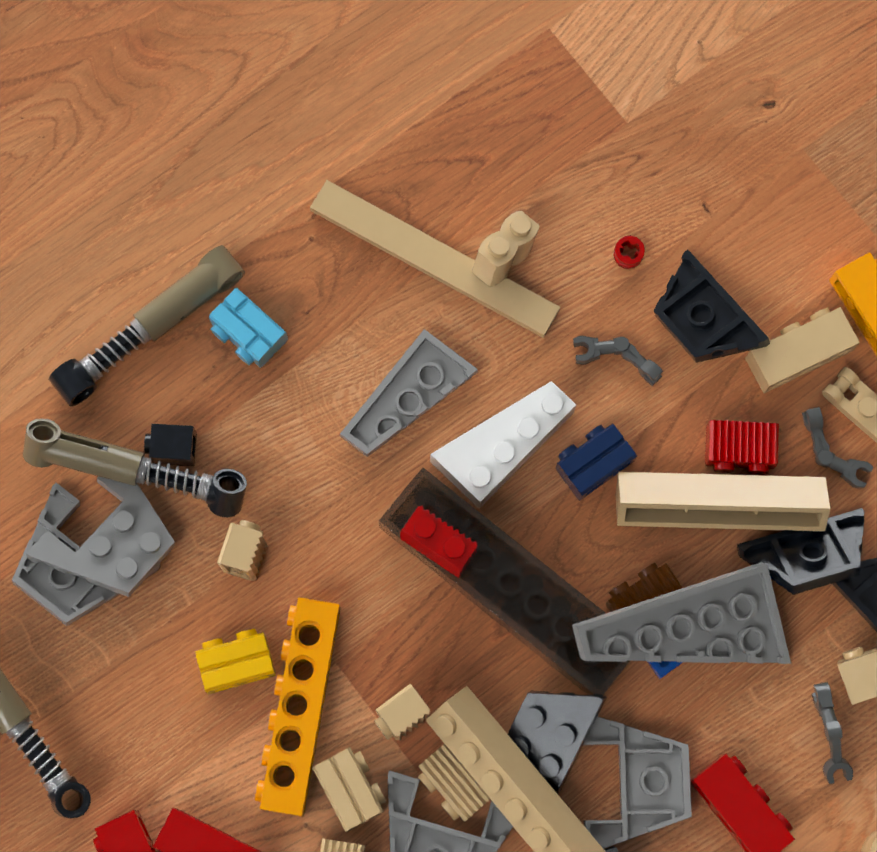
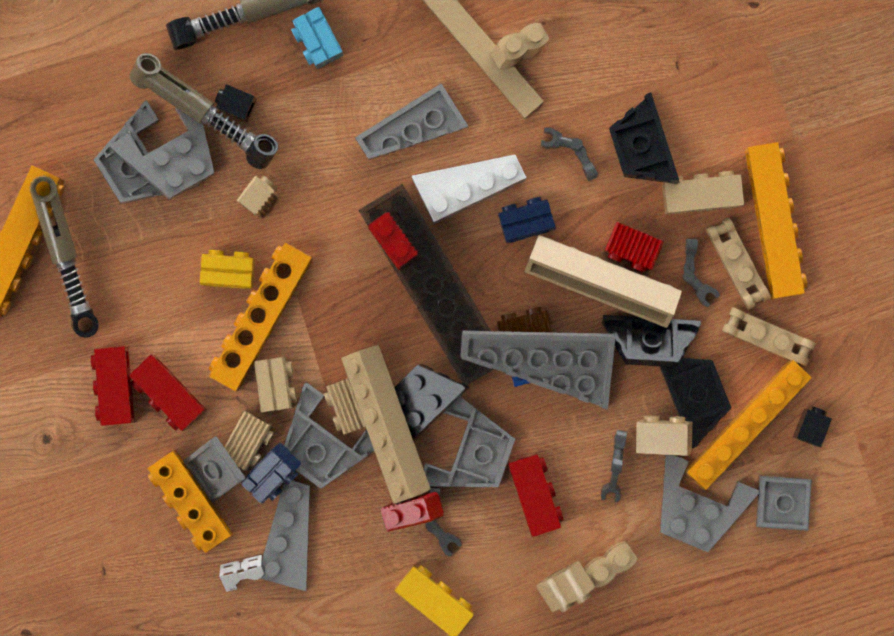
camera: 25 degrees right, 10 degrees up
(401, 713) = (327, 347): tan brick -> none
(625, 261) = (603, 84): red bush -> none

